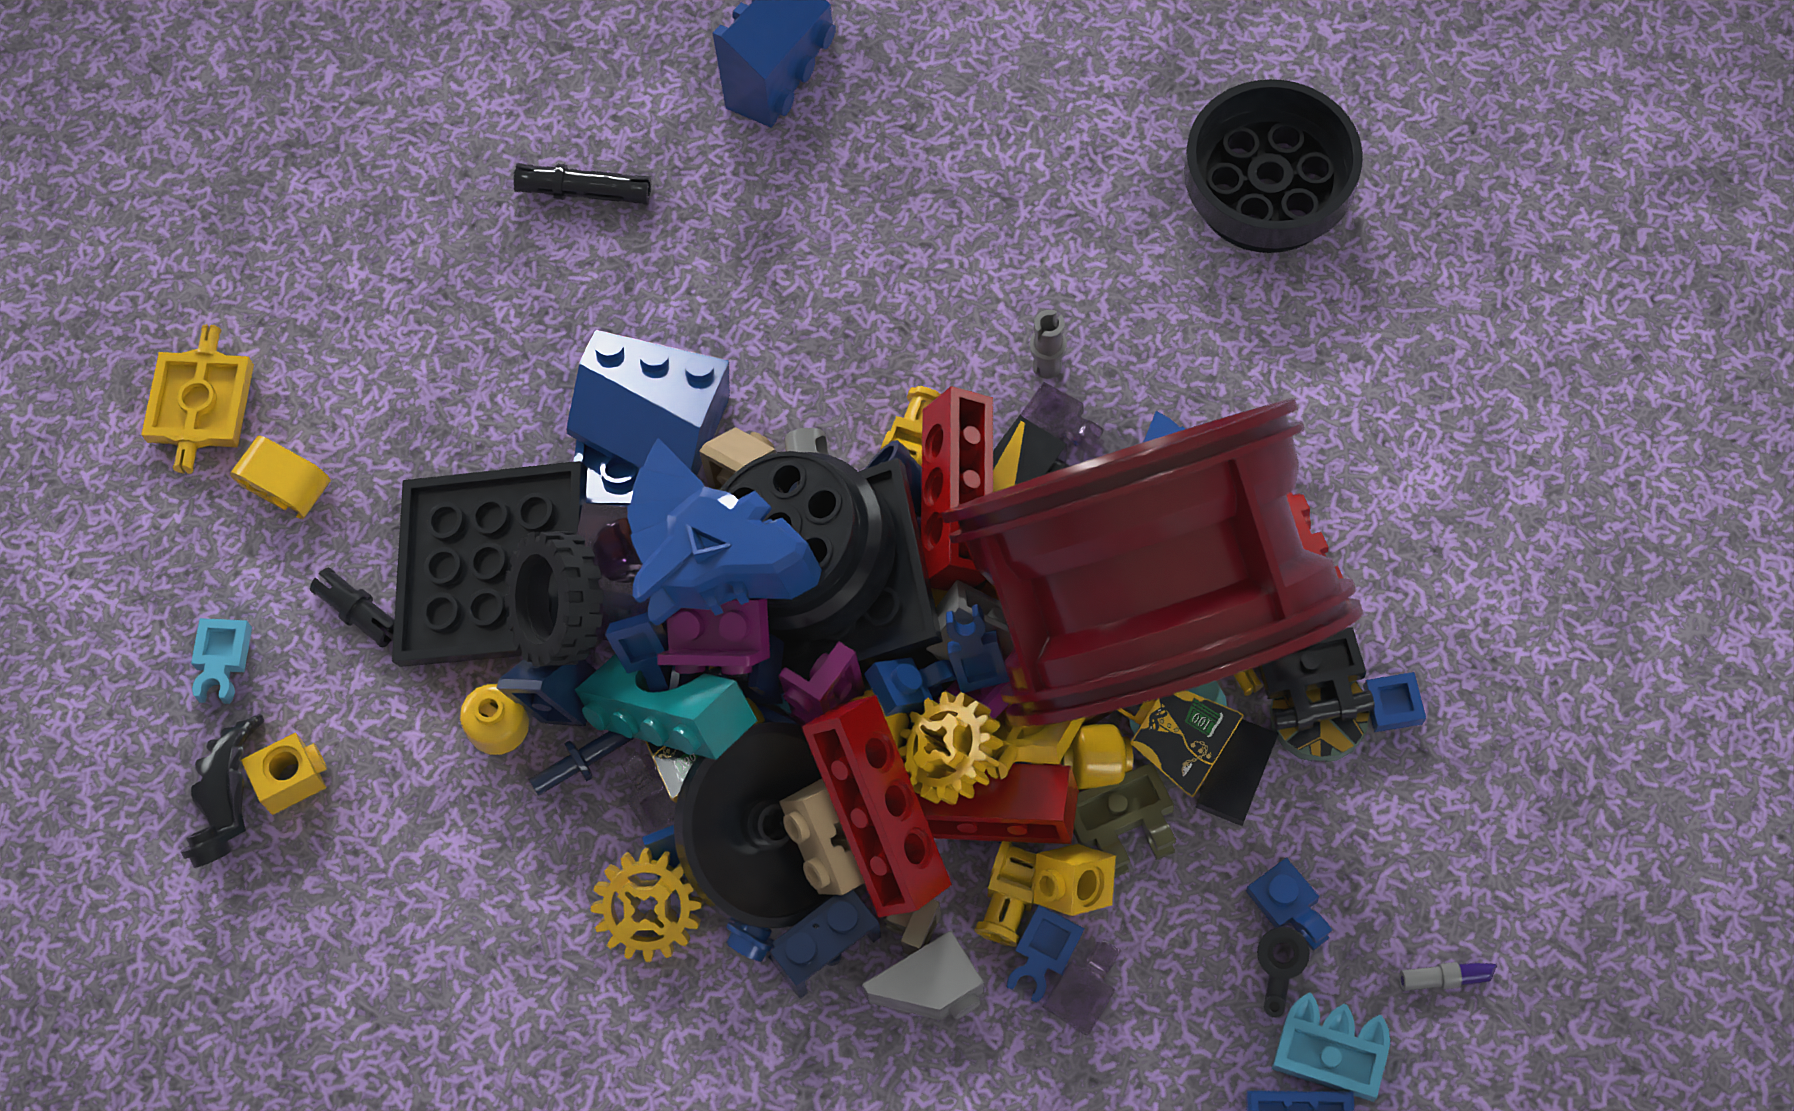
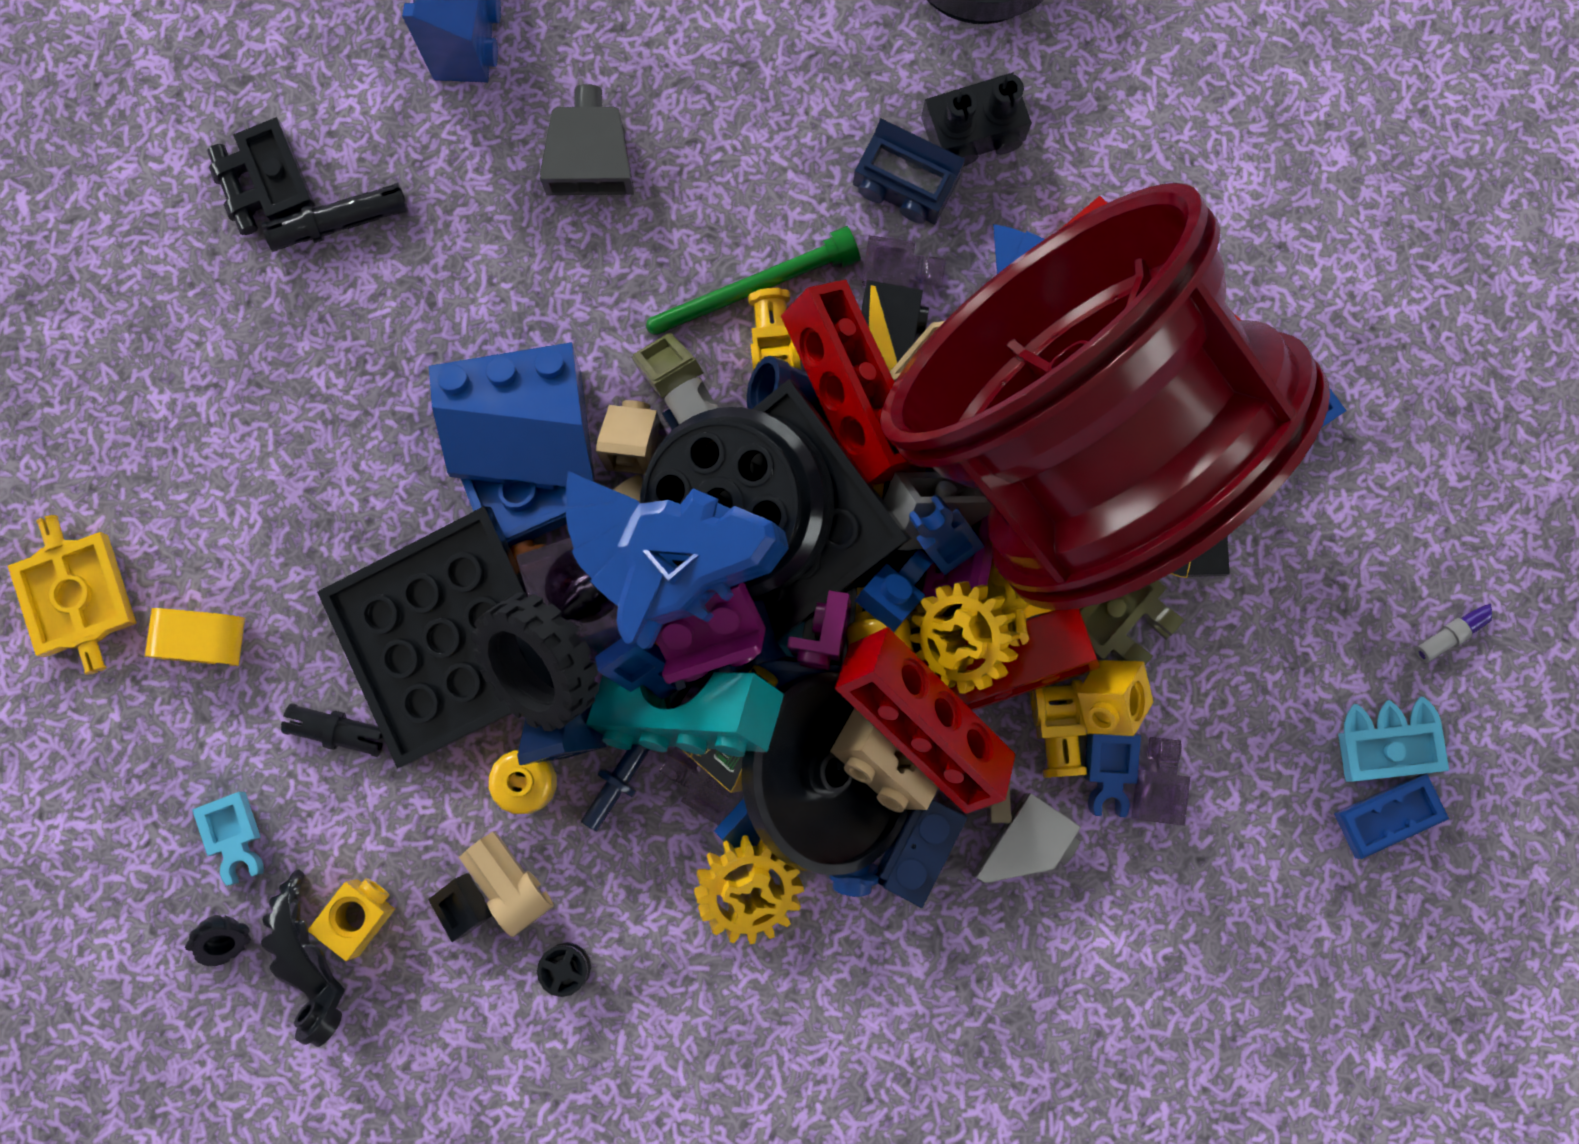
camera: 30 degrees left, 15 degrees up
(160, 742) = (217, 940): none -> black animal
(383, 806) = (460, 907): none -> black plate
(435, 813) = (510, 890): none -> tan piece
(439, 895) = (552, 974): none -> black wheel
(549, 126) = (273, 171): none -> black plate
(803, 413) = (666, 364): none -> olive tile
(826, 212) = (586, 149): none -> dark grey torso
(1009, 384) = (836, 250): none -> green piece
(1048, 344) = (861, 198): light grey pin -> none
(1108, 344) = (907, 173): none -> dark blue window
(1191, 322) = (978, 118): none -> black brick
(1280, 972) = (1319, 692): black plate -> none
(1287, 899) = (1294, 626): blue plate -> none

